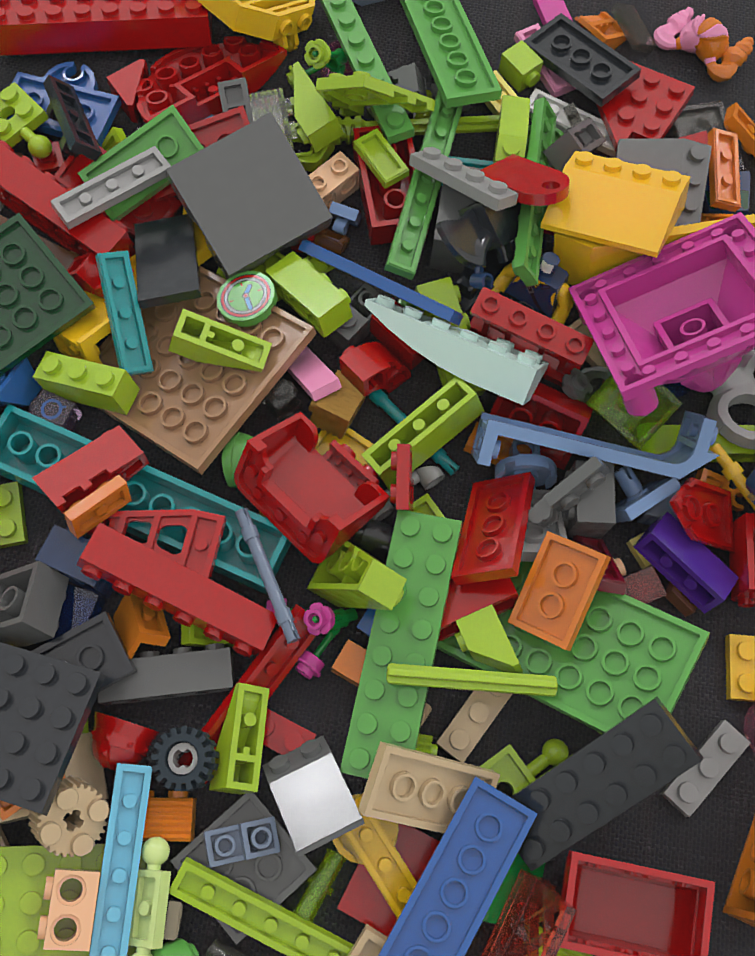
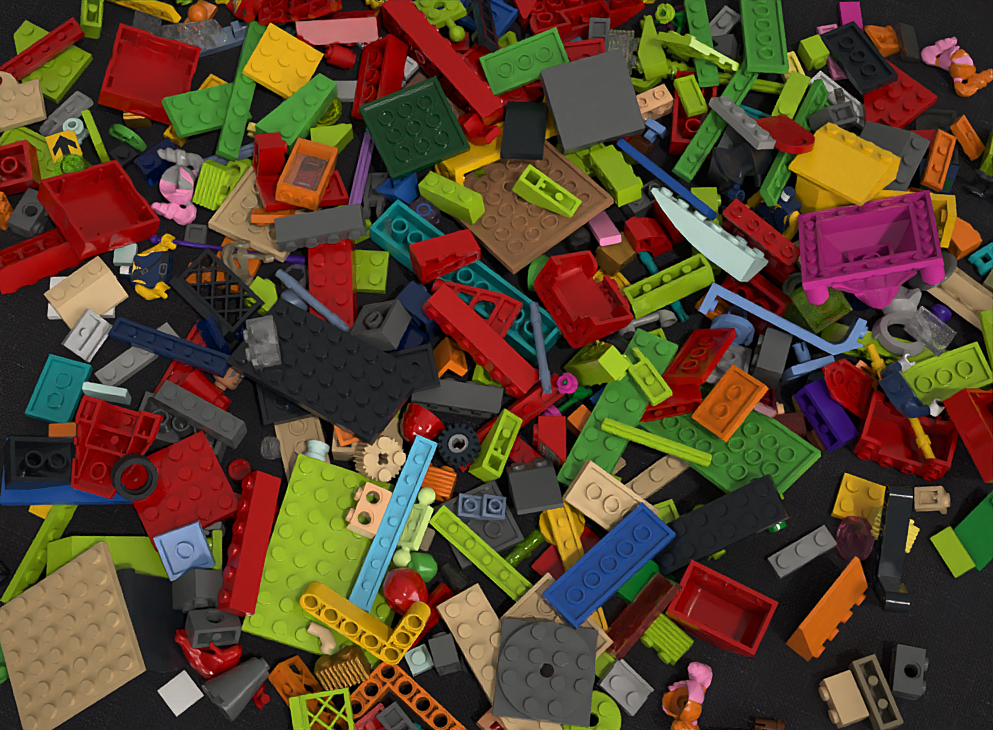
camera: 20 degrees right, 5 degrees down
(97, 506) = (447, 273): orange plate -> none
(110, 187) = (501, 73): light grey plate -> none
(124, 312) = (488, 157): teal tile -> none
(246, 298) = (572, 168): tile -> none
(318, 708) = (551, 439): none -> red slope
(397, 50) = (724, 22): none -> light grey plate
(403, 491) = (645, 317): red plate -> none
(434, 585) = (648, 378): none -> lime hinge
(487, 640) = (673, 423): lime slope -> none
(567, 492) = (754, 344): dark grey hinge -> none
(576, 385) = (785, 281): dark grey plate -> none

